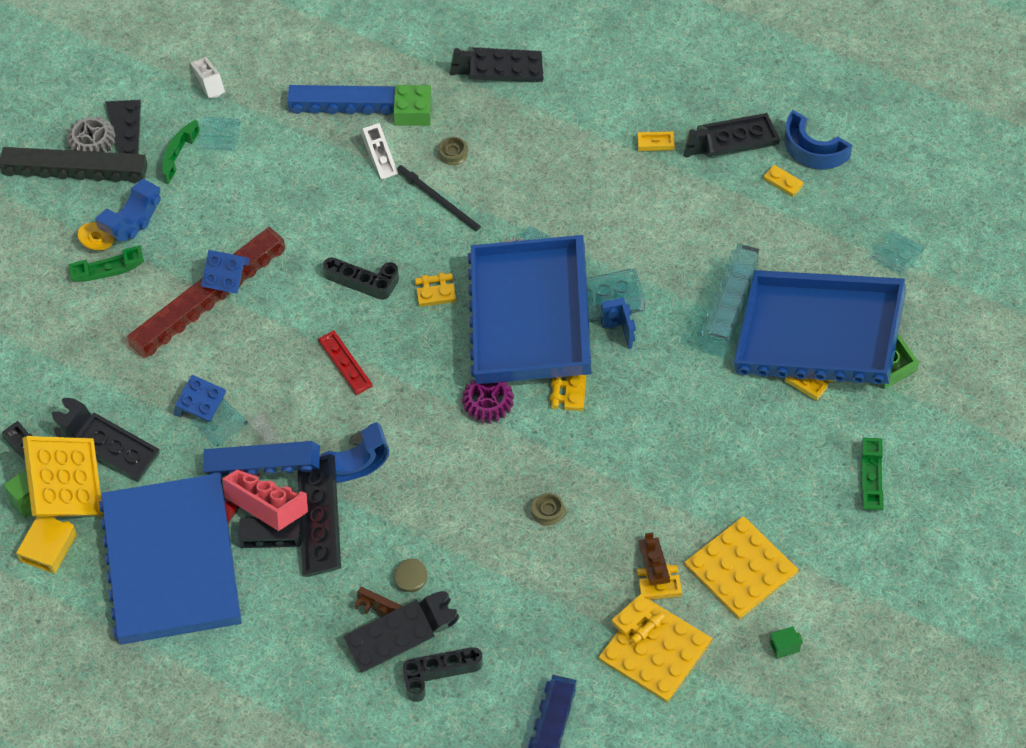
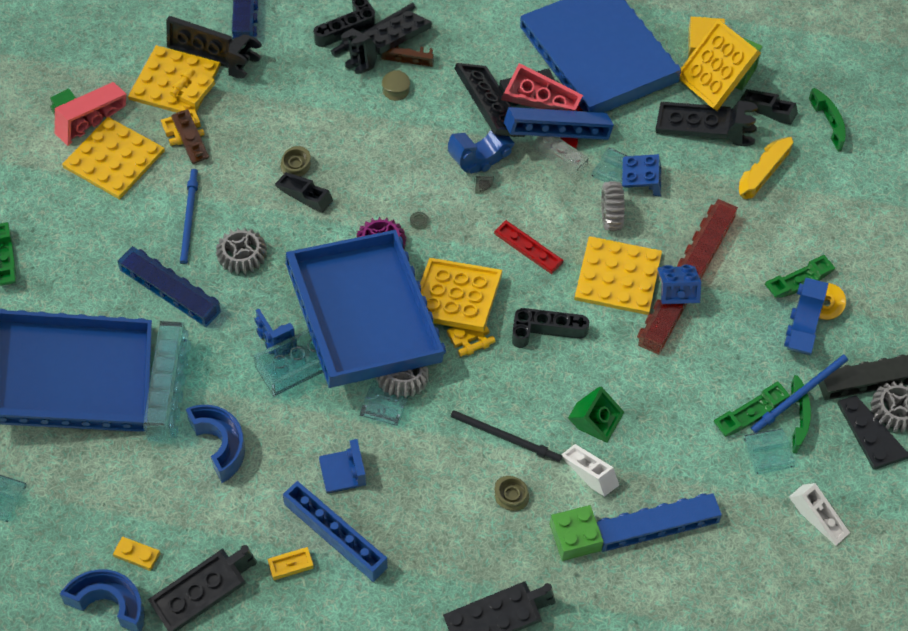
camera: 160 degrees right, 0 degrees up
(71, 379) = (769, 161): none -> yellow brick
(205, 154) = (769, 418): none -> blue bar
(217, 167) = (752, 411): none -> green slope
(247, 366) = (612, 205): none -> light grey gear
(272, 313) = (618, 275): none -> yellow plate
(356, 189) = (596, 414): none -> green slope
(432, 323) = (459, 293): none -> yellow plate
(442, 416) = (419, 220): none -> clear smoke tile
(447, 645) = (345, 44): none -> black bar
(549, 472) = (305, 191): none -> black slope
(579, 648) = (213, 45): none -> black hinge
(590, 201) = (343, 469): none -> blue bracket
(612, 149) = (335, 531): none -> blue brick
(631, 428) = (243, 256): none -> light grey gear
(664, 509) = (192, 187): none -> blue bar
(684, 252) = (222, 424): none -> blue brick
(710, 402) = (169, 286): none -> clear blue brick
(758, 620) = (87, 111): none -> coral wedge

